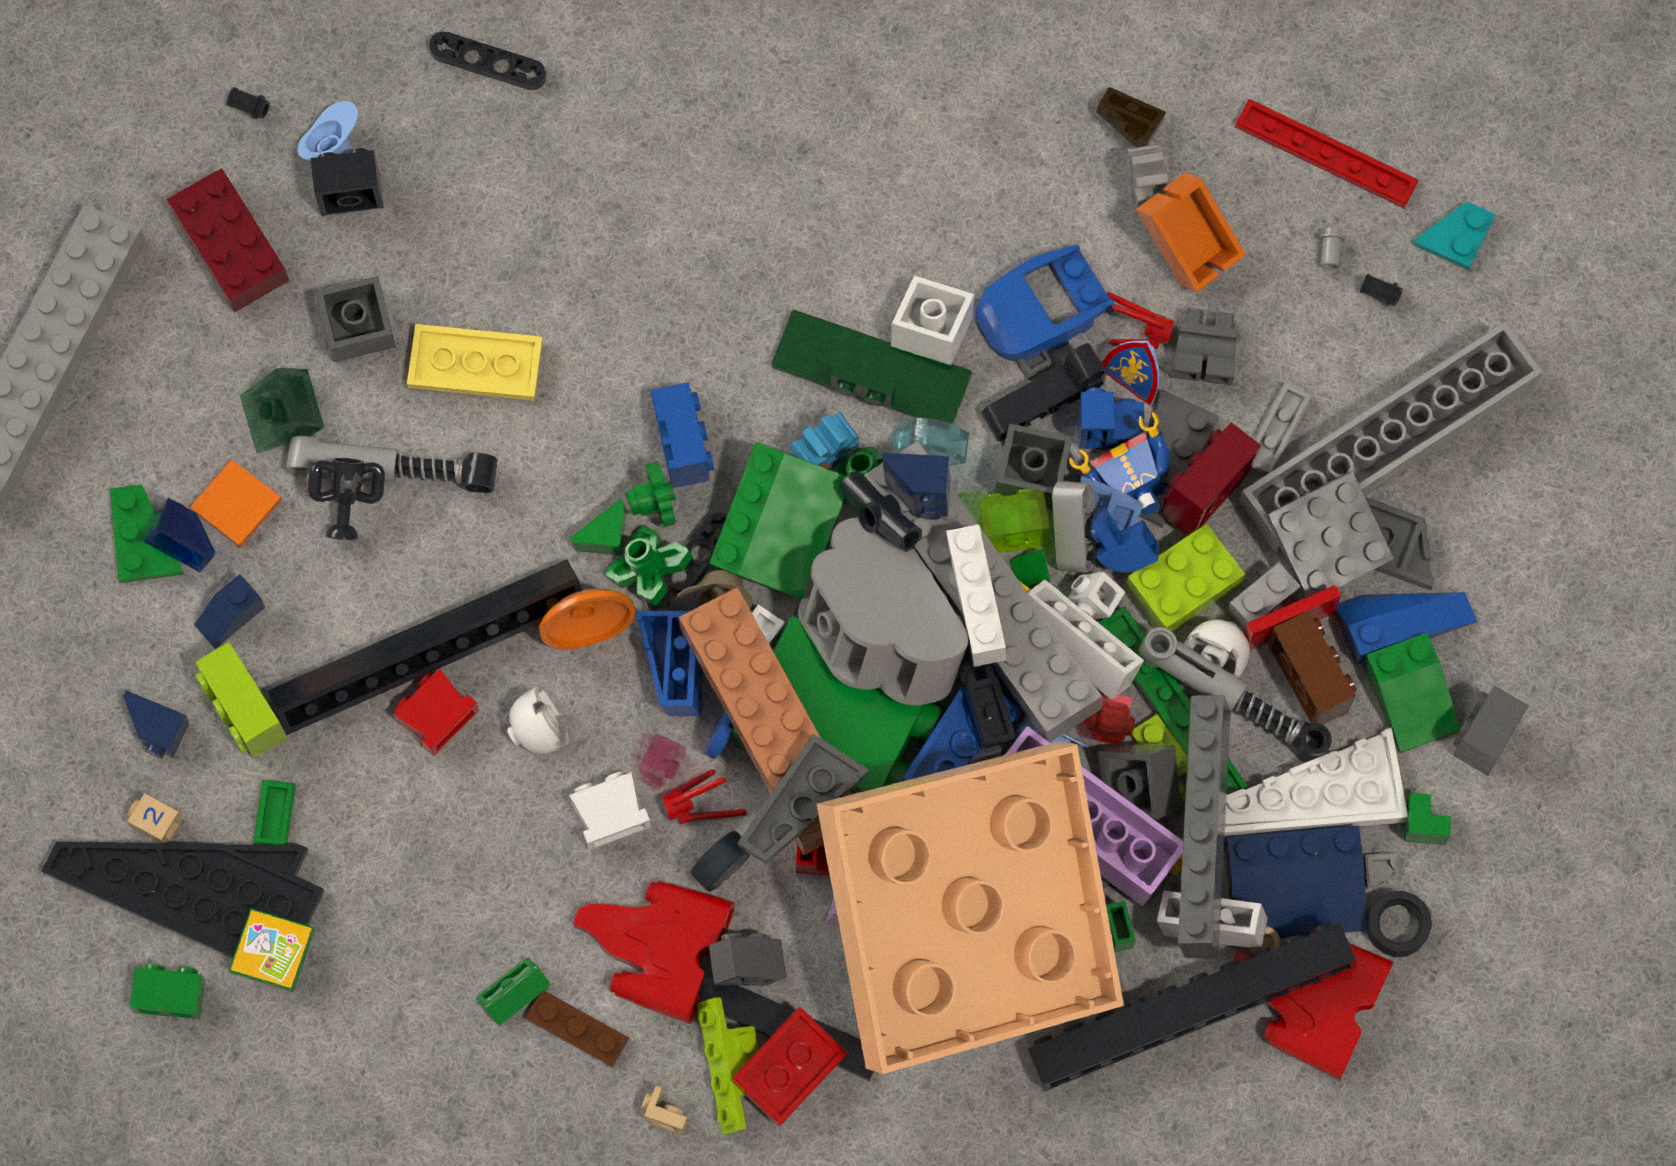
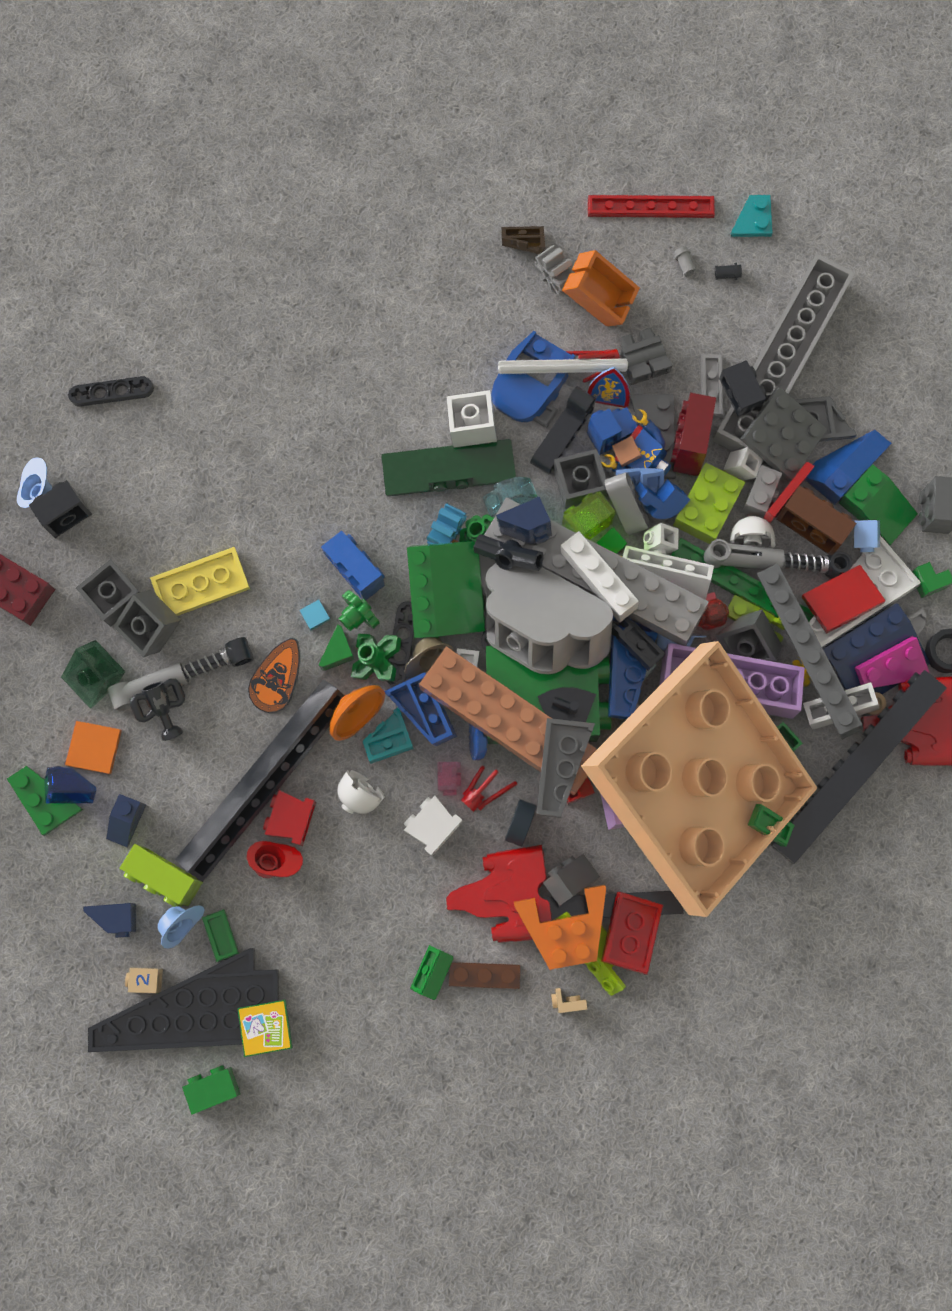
camera: 25 degrees left, 5 degrees up
(230, 771) = (177, 923): none -> light blue piece
(382, 379) = (147, 623): none -> dark grey brick
(388, 752) = (274, 859): none -> red piece
(509, 528) = (276, 677): none -> shield
(599, 473) = (314, 614): none -> medium azure tile
(610, 676) = (388, 739): none -> teal wing
(701, 1029) = (567, 939): none -> orange wing
(856, 736) = (567, 703): none -> black shield
(1029, 1002) = (765, 817): none -> green tile
(1086, 308) = (561, 366): none -> white axle
(1110, 459) = (627, 451): none -> nougat tile
(1257, 551) = (743, 464): none -> white brick
(1291, 786) = (843, 599): none -> red tile
(1303, 450) = (742, 388): none -> black brick
(1312, 903) = (893, 664): none -> dark pink wing
(1368, 720) = (867, 535): none -> light blue brick

